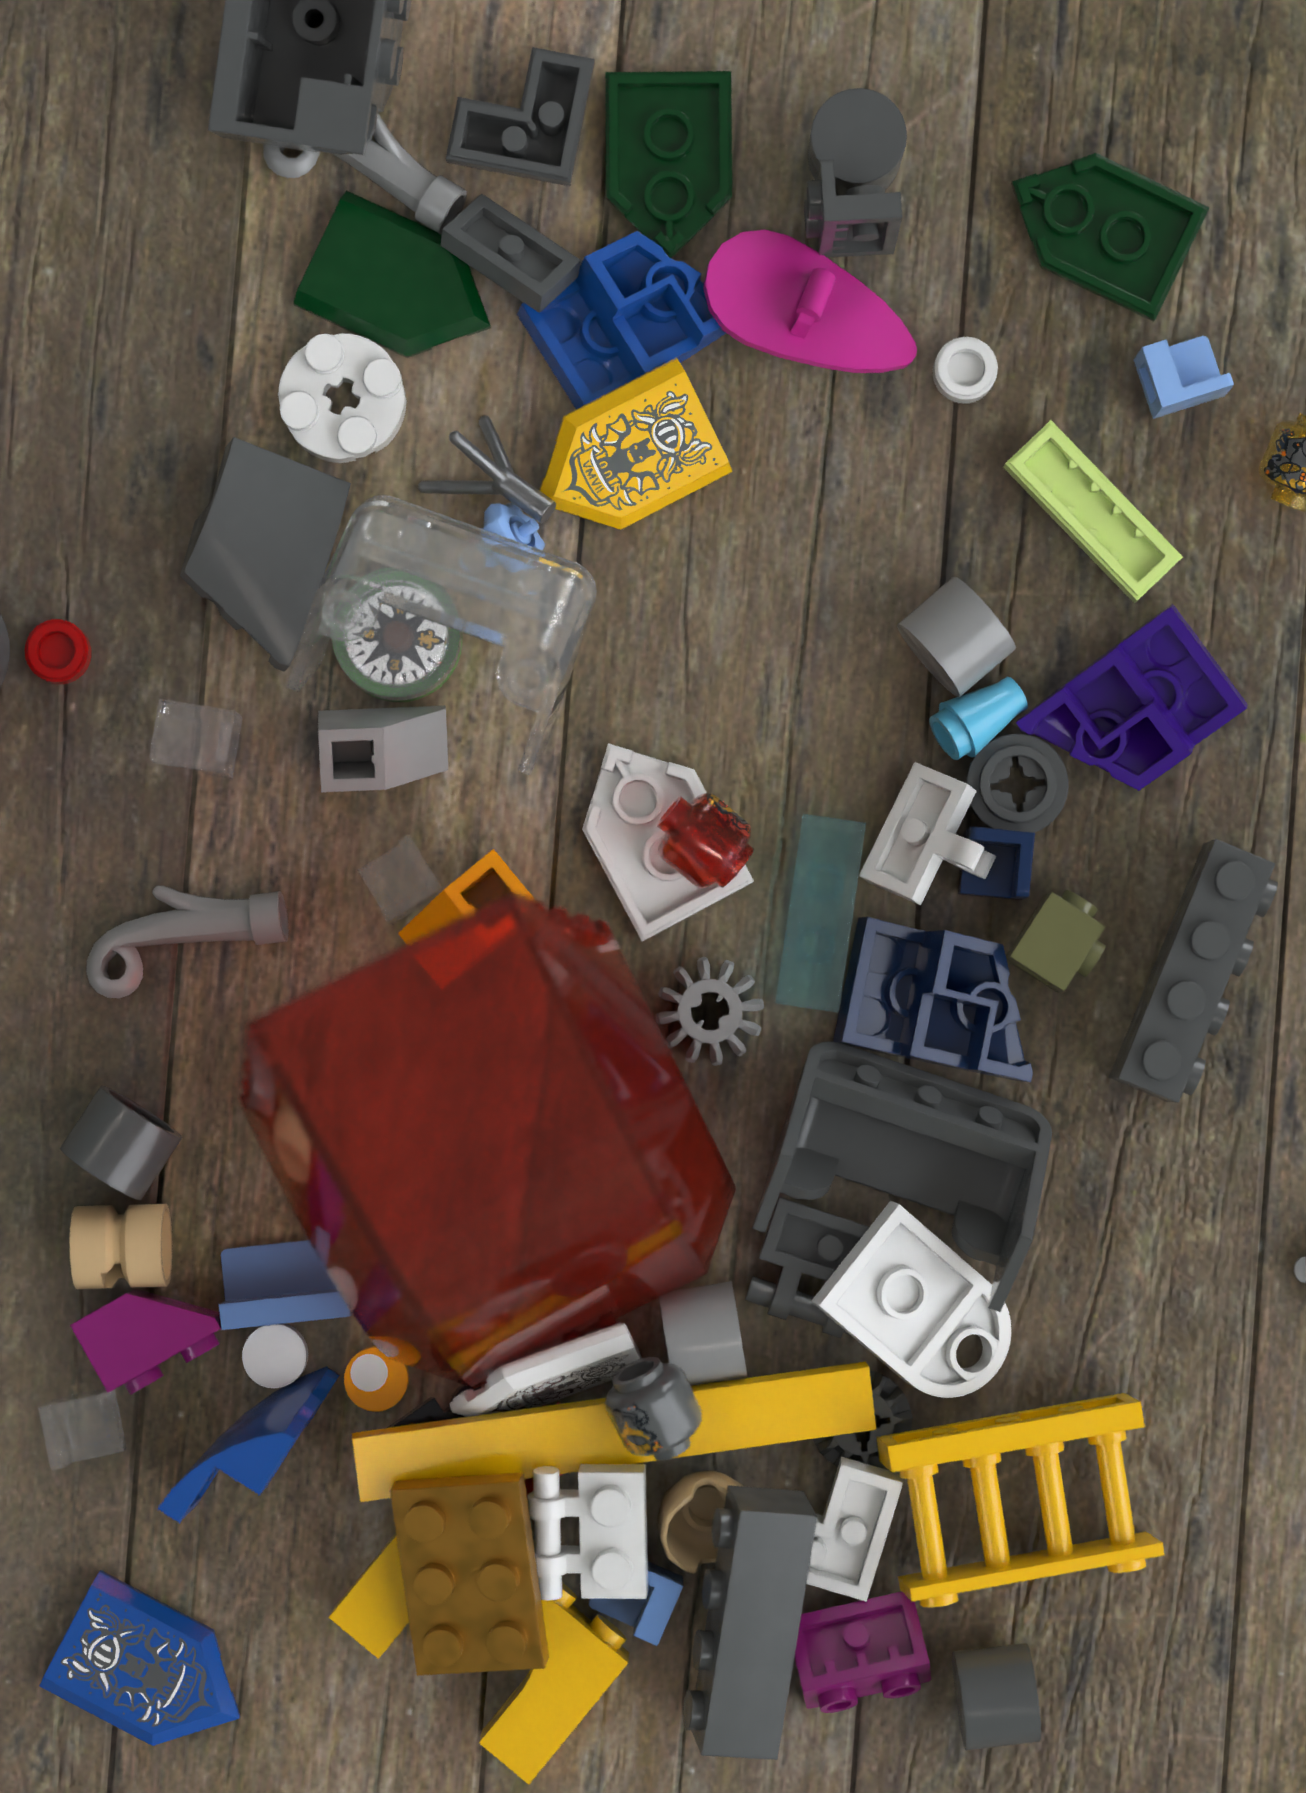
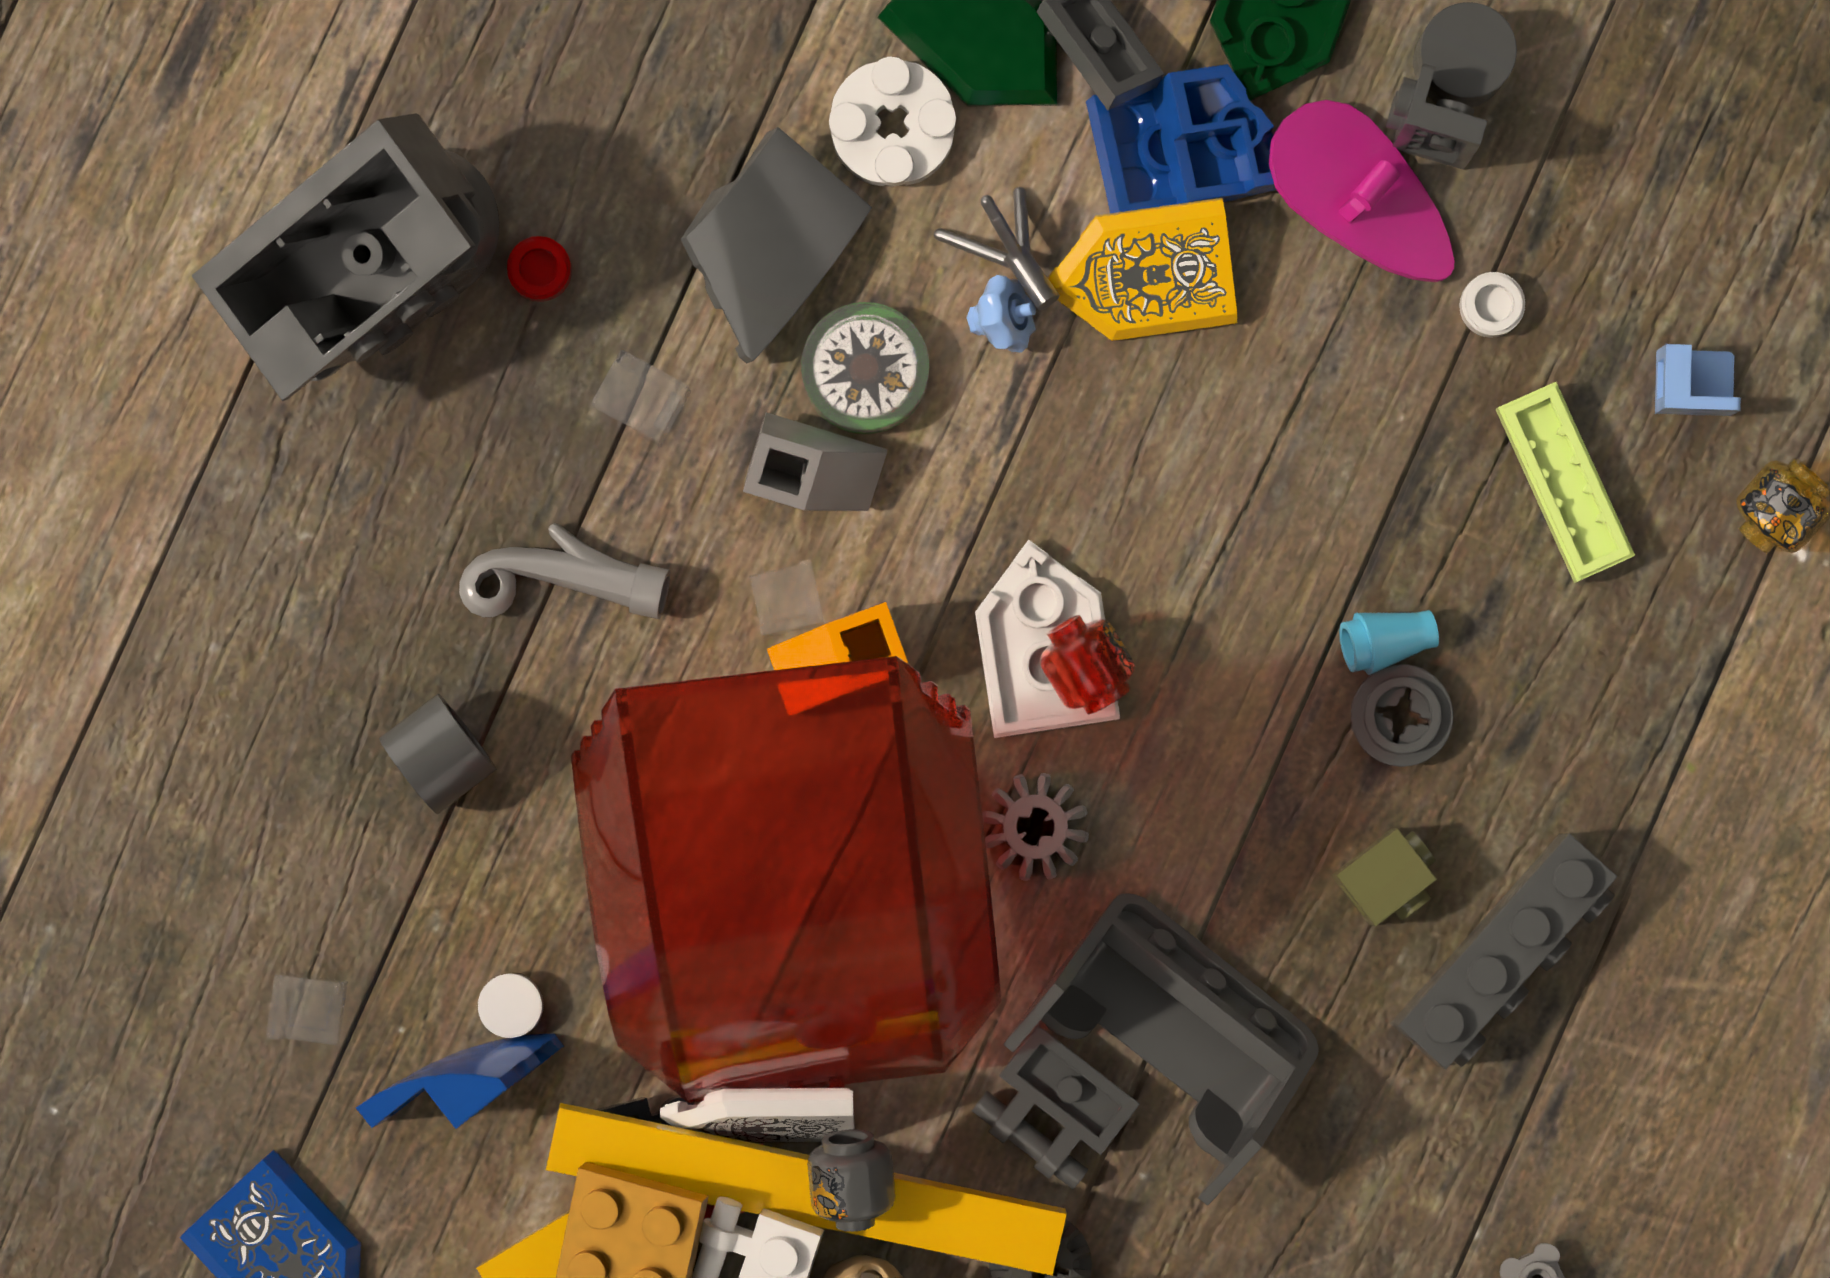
camera: 20 degrees right, 0 degrees up
(121, 1246) = (403, 851): tan wheel -> none
(141, 1331) = (392, 939): magenta slope -> none
(277, 1286) = (539, 941): medium blue panel -> none
(375, 1380) = (597, 1062): light orange tile -> none
(463, 581) = (945, 340): clear windscreen -> none
(704, 1333) = (922, 1127): light grey piece -> none
(820, 913) = (1172, 771): clear light blue plate -> none
(914, 1305) = (1129, 1172): white tile -> none
(923, 834) = (1295, 731): white plate -> none
(931, 1000) = (1248, 890): dark blue slope -> none
(956, 636) = (1393, 555): light grey piece -> none
(1011, 869) = (1355, 783): dark blue panel -> none
(1109, 230) = (1677, 220): dark green tile -> none
(1140, 703) = (1545, 679): dark purple slope -> none

